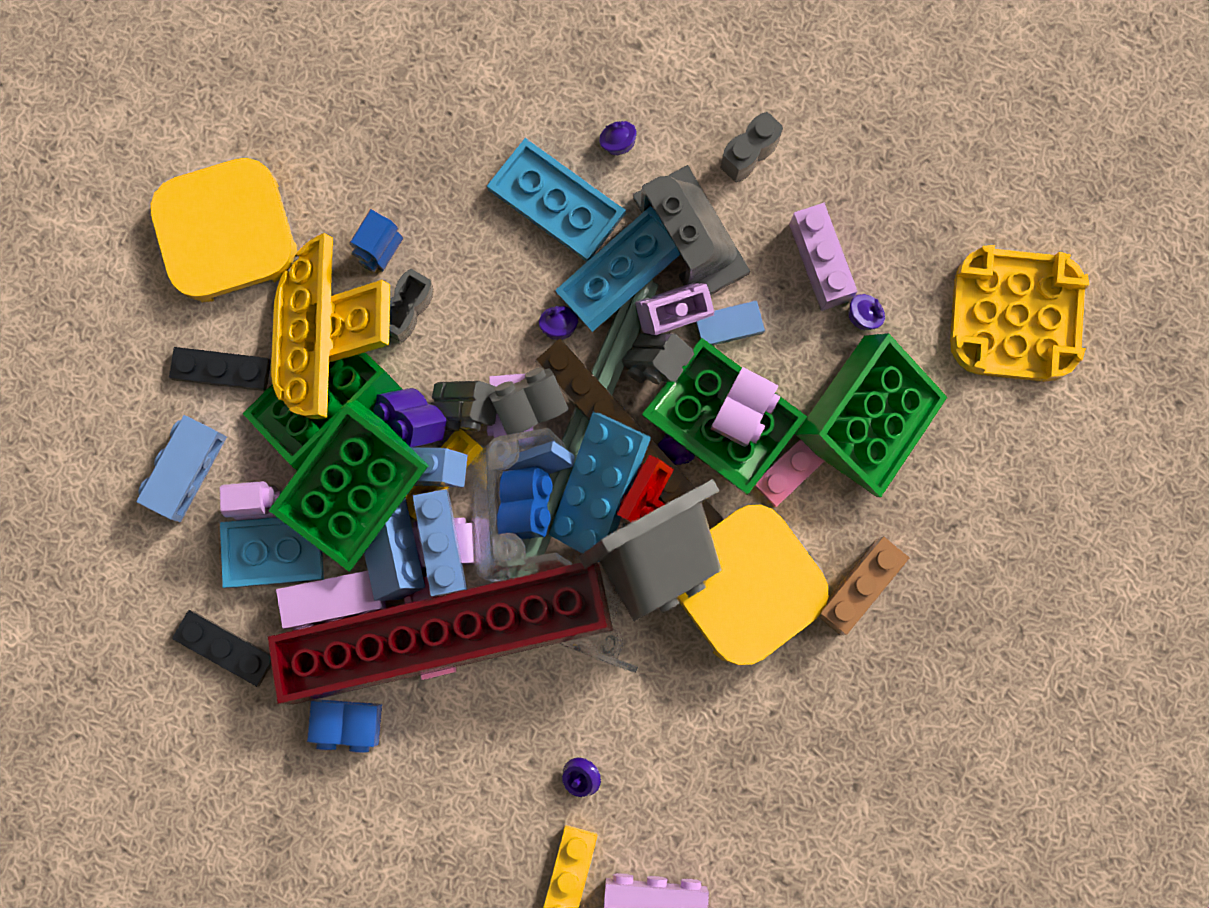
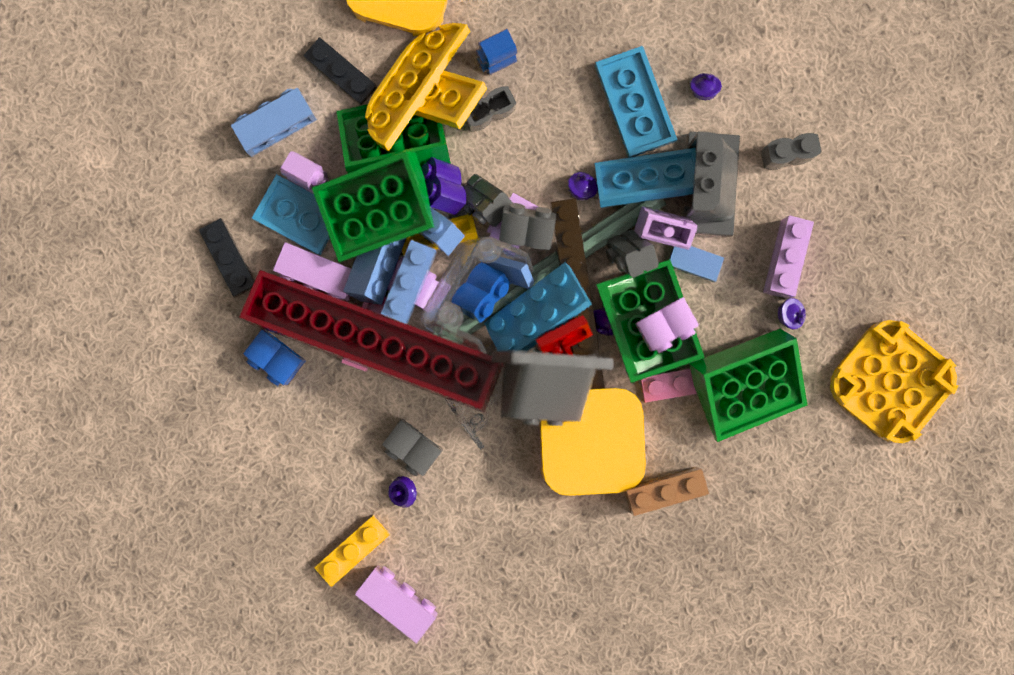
camera: 30 degrees right, 5 degrees up
(560, 722) = (412, 448): none -> dark grey brick

